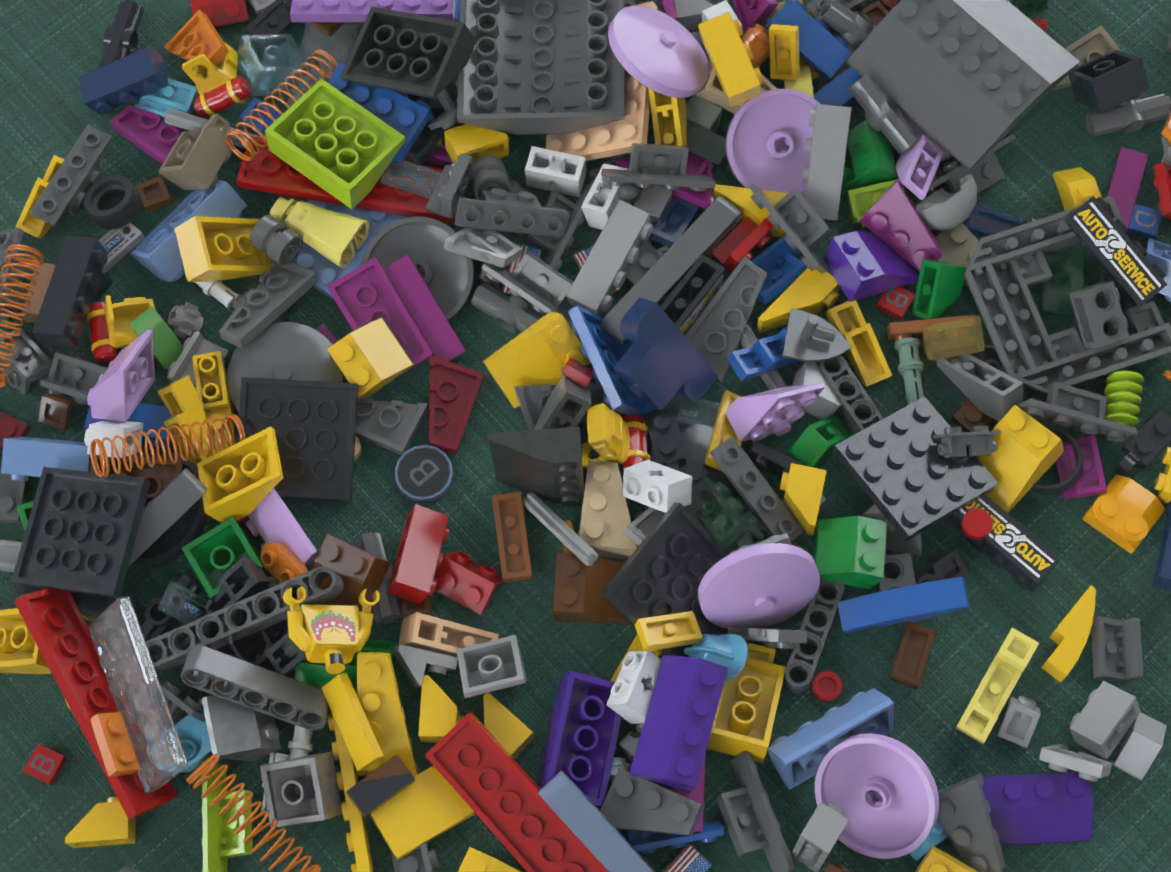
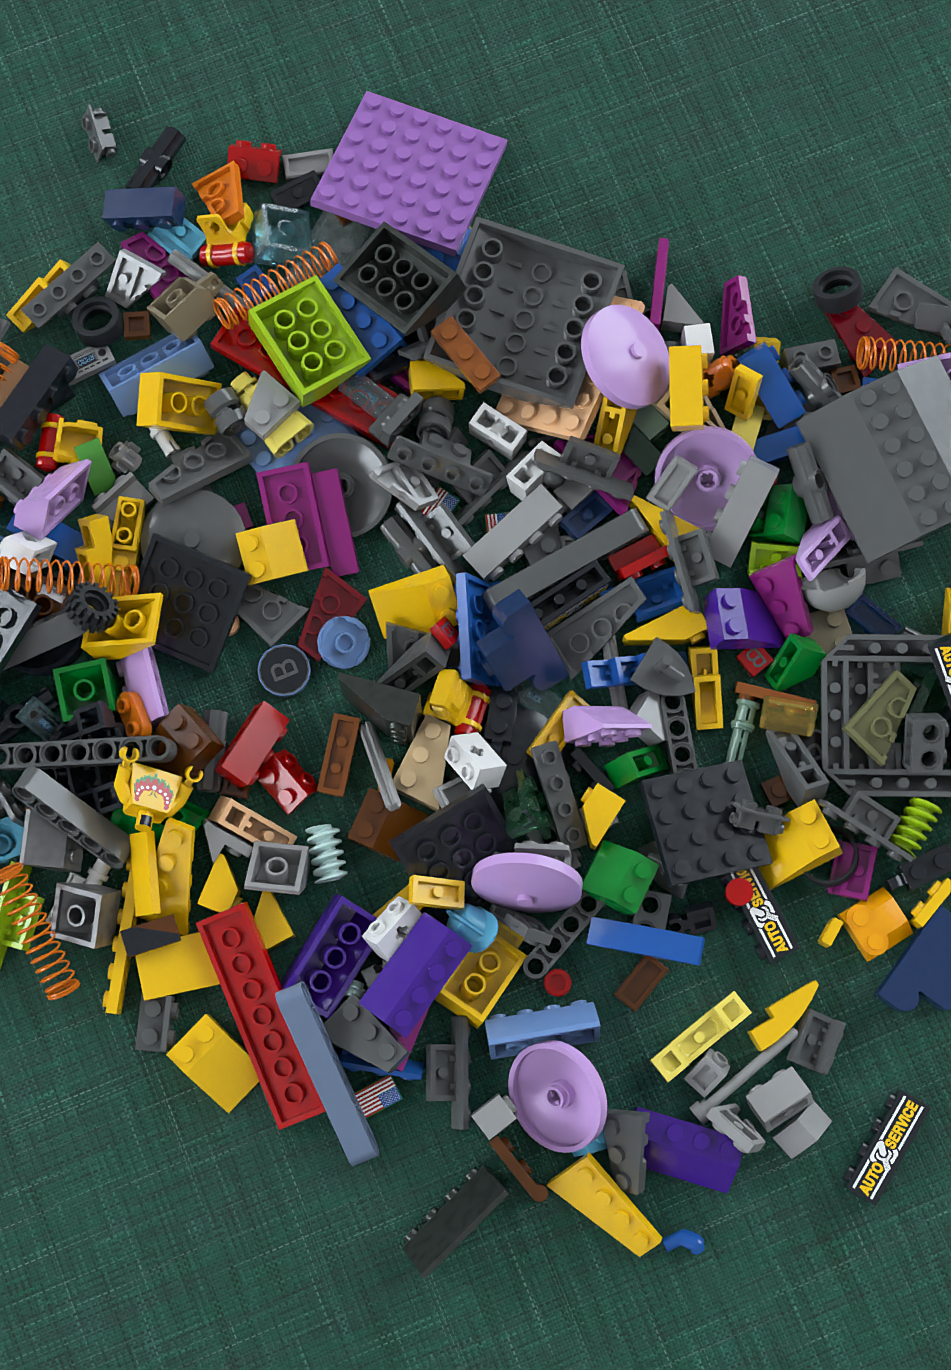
camera: 15 degrees right, 10 degrees up
(47, 25) = (96, 123): none -> dark grey hinge
(134, 149) = (132, 278): none -> light grey wing
(203, 463) = (79, 609): none -> black tyre
(318, 217) = (269, 406): none -> light grey wing
(472, 421) = (343, 642): none -> medium blue tile
(499, 101) = (465, 354): none -> dark orange plate
(535, 638) = (326, 853): none -> light aqua piece
(748, 158) = (672, 483): none -> light grey tile
(1030, 760) = (701, 1109): none -> light grey piece
(1044, 307) = (879, 717): none -> olive wing
(1083, 535) = (830, 932): none -> yellow tile

